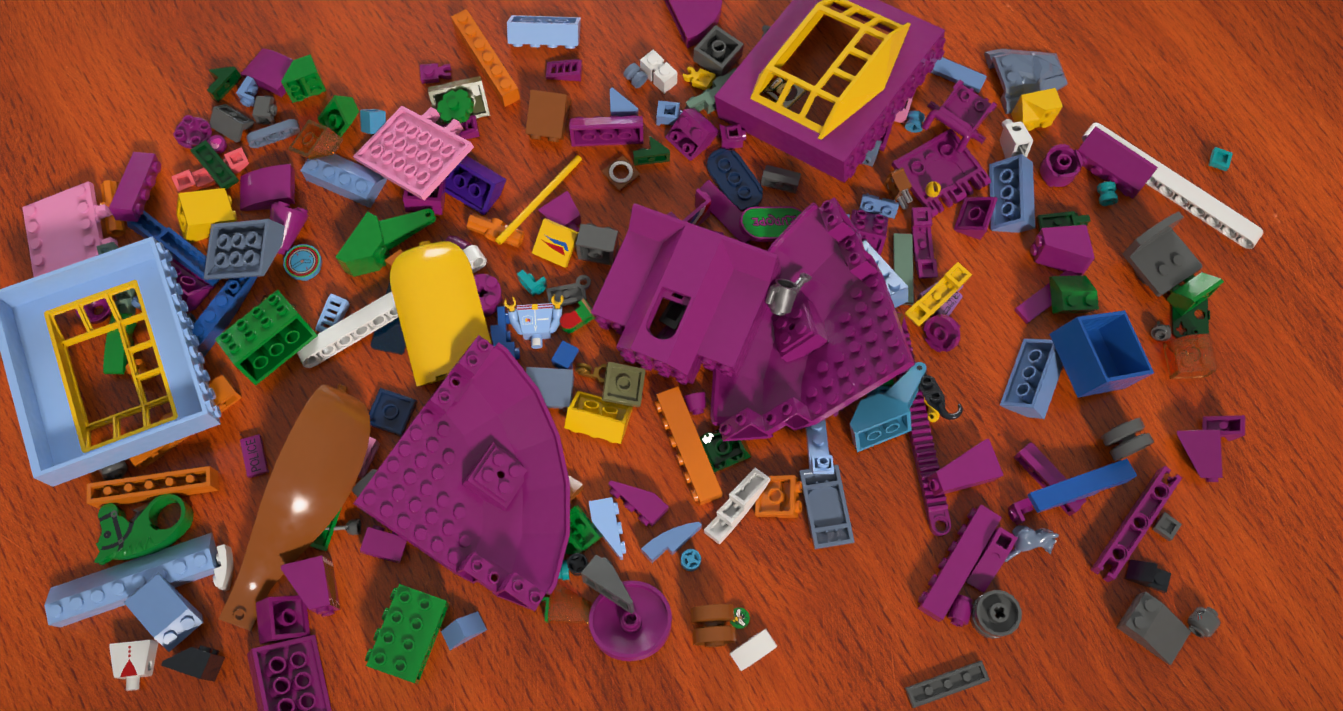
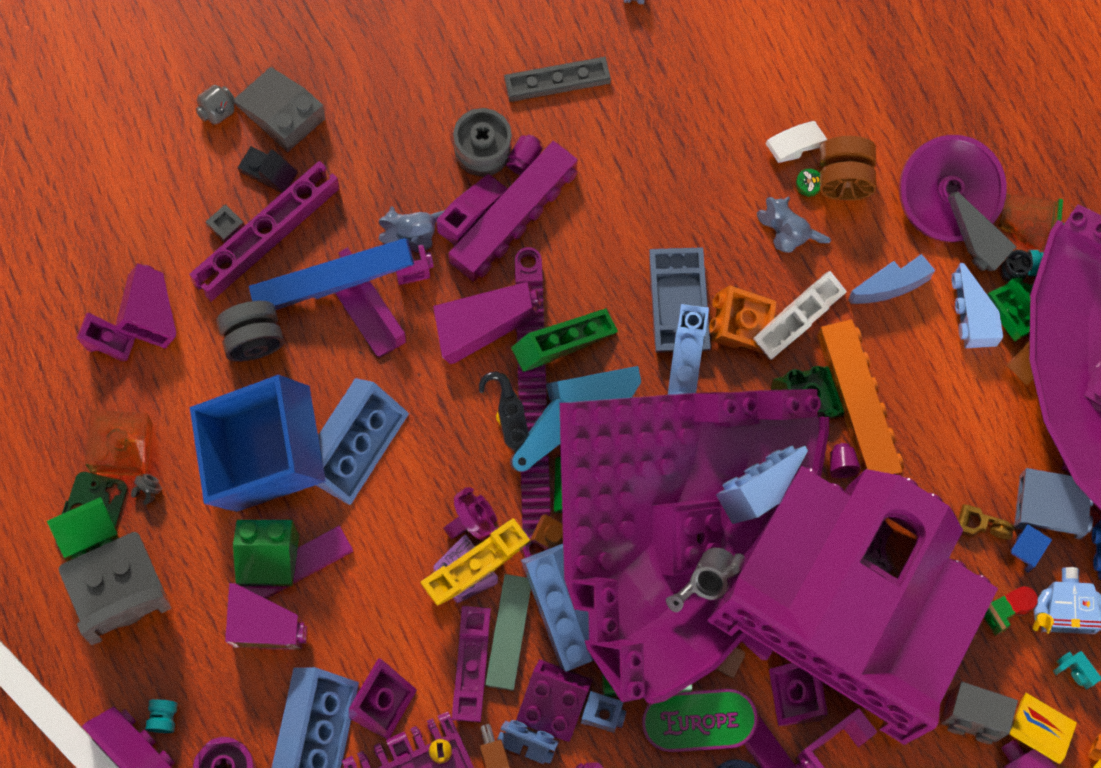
camera: 175 degrees left, 0 degrees up
(572, 292) = (1021, 647): dark grey hinge -> none
(597, 417) = (983, 458): yellow slope -> none
(623, 384) = (955, 489): olive plate -> none
(644, 503) = (927, 334): magenta slope -> none
(692, 557) = (869, 250): dark azure wheel -> none
(751, 574) = (789, 227): none -> sand blue animal
(755, 362) = (761, 485): none -> light blue slope
(904, 462) = (562, 339): none -> green slope
(1061, 219) = (247, 677): dark green hinge -> none

